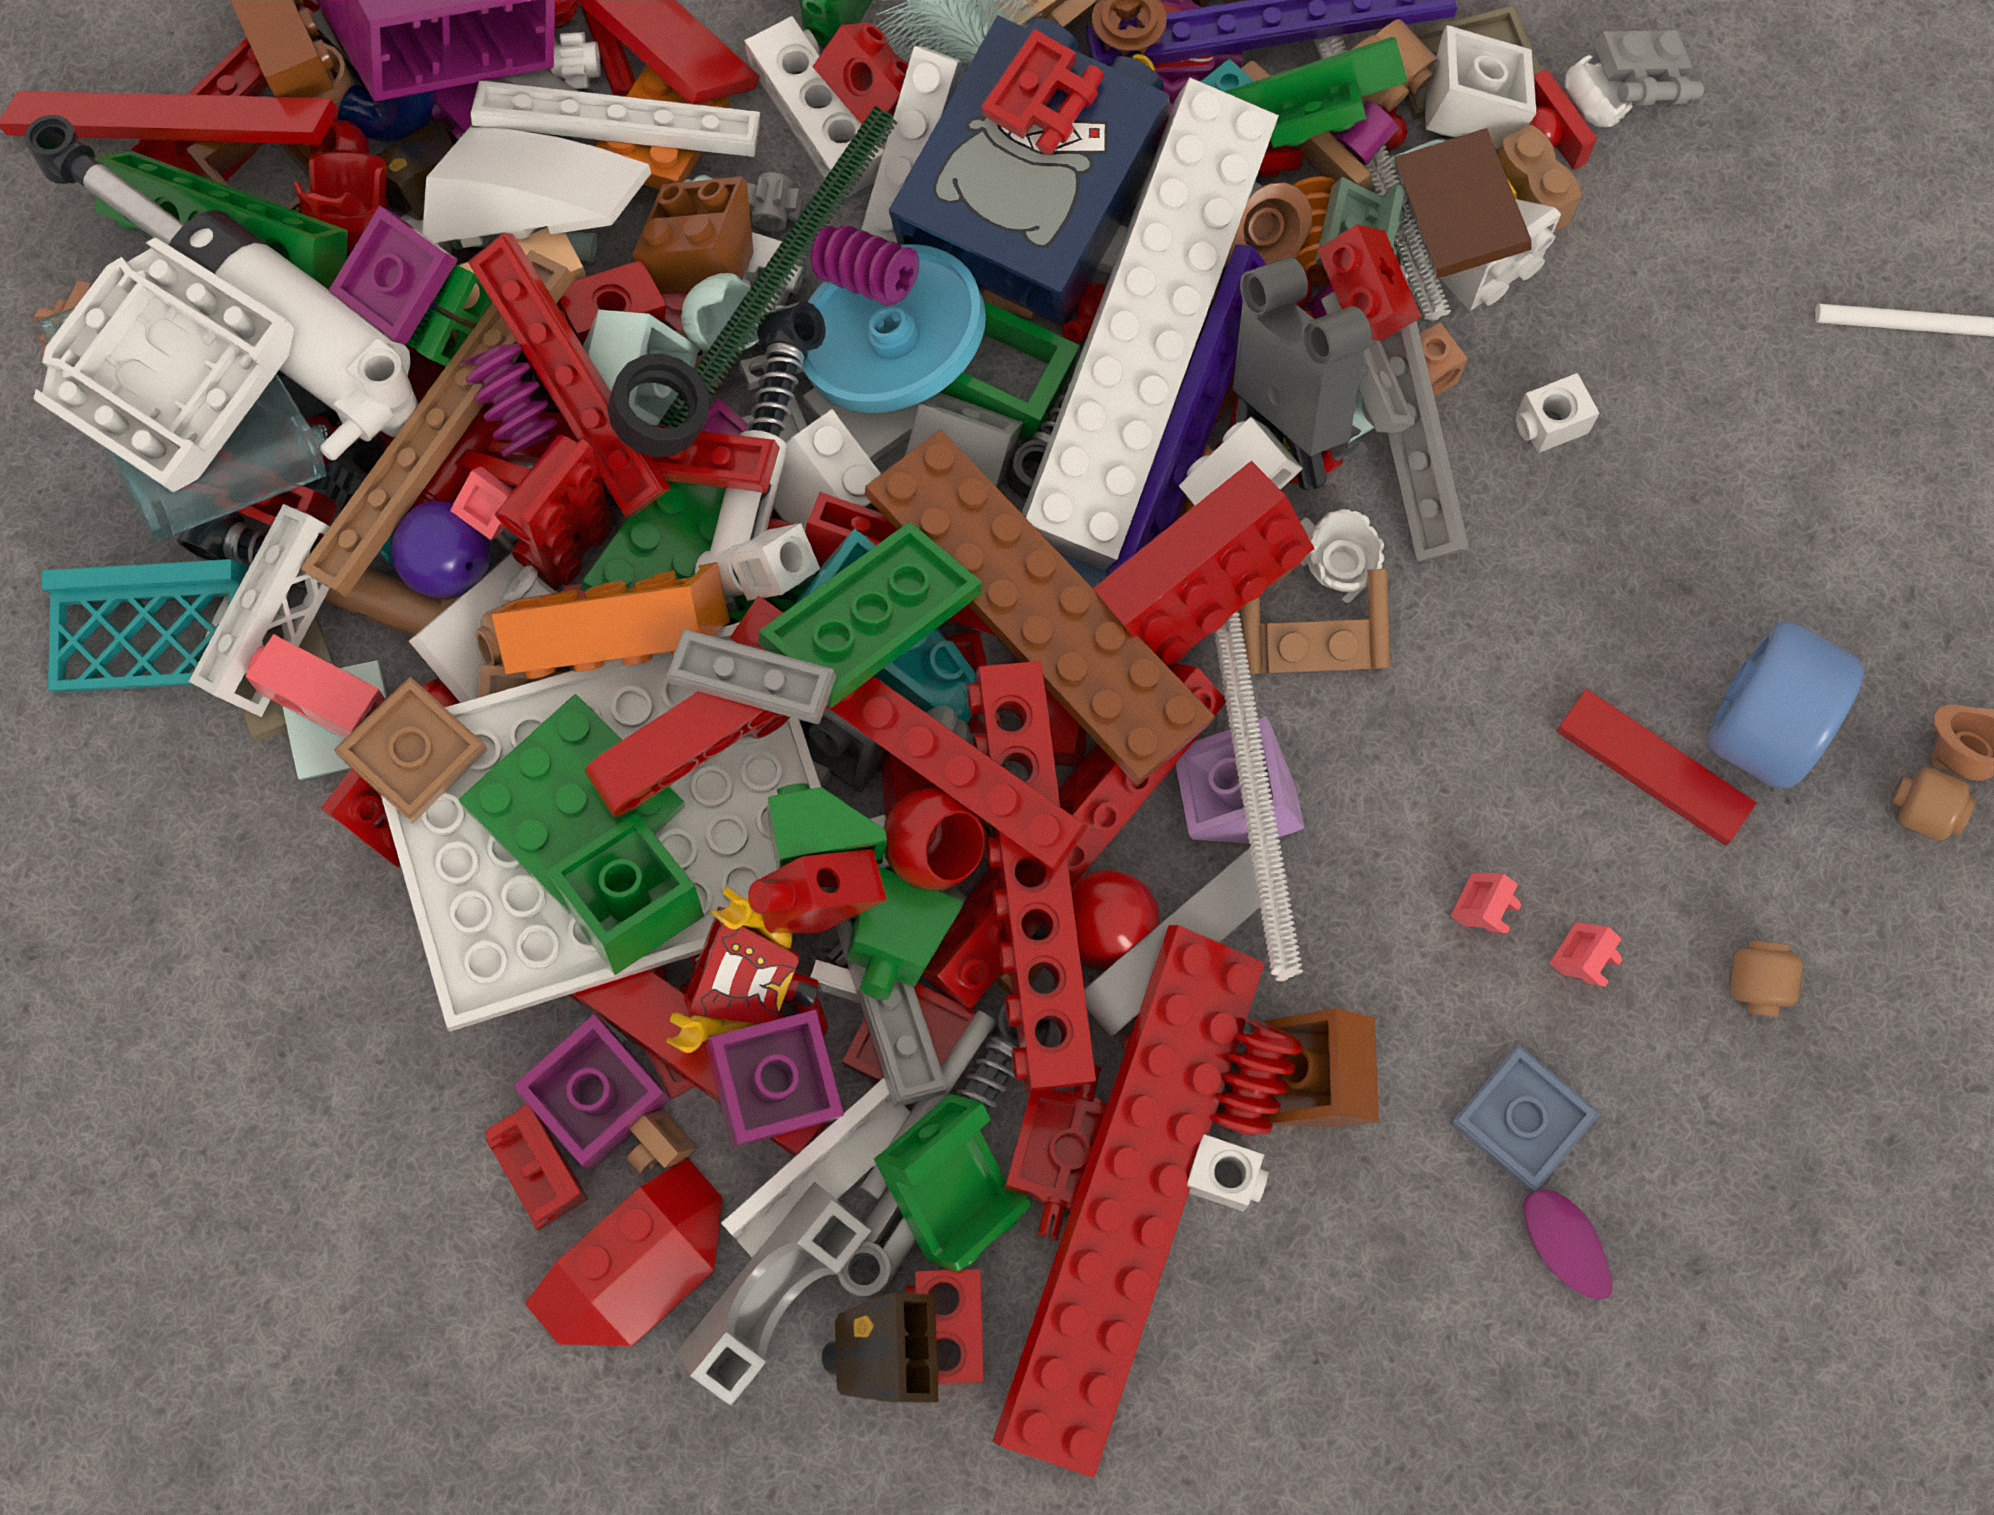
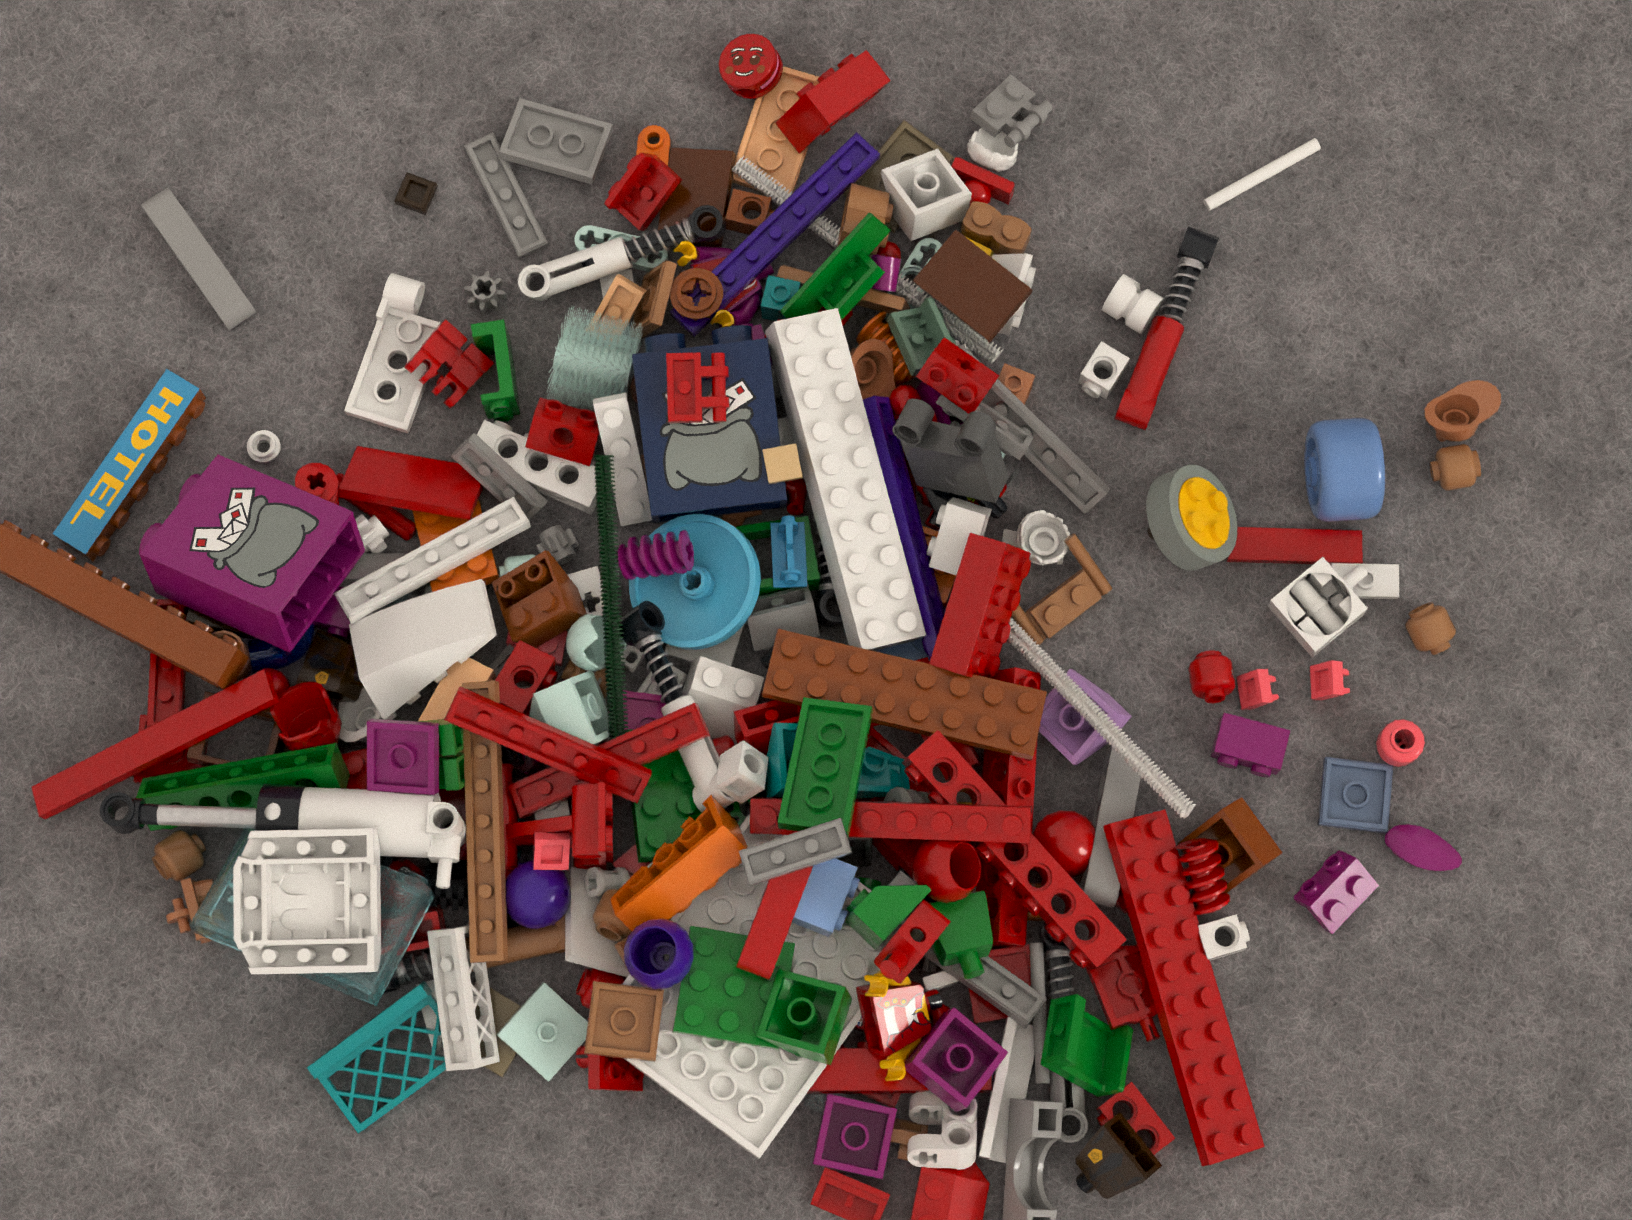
camera: 35 degrees left, 5 degrees up
(97, 249) = (179, 855): none -> medium nougat head
(312, 686) = (529, 1024): coral brick -> none
(504, 692) = (646, 952): none -> dark purple helmet
(509, 398) = (525, 779): magenta piece -> none
(668, 372) = (628, 706): black tyre -> none
(709, 1183) = (954, 1146): none -> white piece
(759, 766) = (824, 897): none -> light blue brick
(761, 83) = (497, 475): none -> light grey tile
(1023, 365) = (788, 553): none -> dark azure hinge
(1083, 244) = (782, 463): none -> tan tile
(1417, 1219) = (1336, 890): none -> bracket
(1430, 962) = (1250, 745): none -> magenta brick
(1439, 849) = (1211, 676): none -> red head
(1546, 639) = (1191, 517): none -> light grey wheel
(1578, 473) = (1165, 331): none -> piece
(1639, 852) = (1310, 600): none -> white piece
(1644, 356) = (1131, 303): none -> white wheel
(1645, 1085) = (1408, 735): none -> coral head
(1718, 866) = (1380, 582): none -> white plate

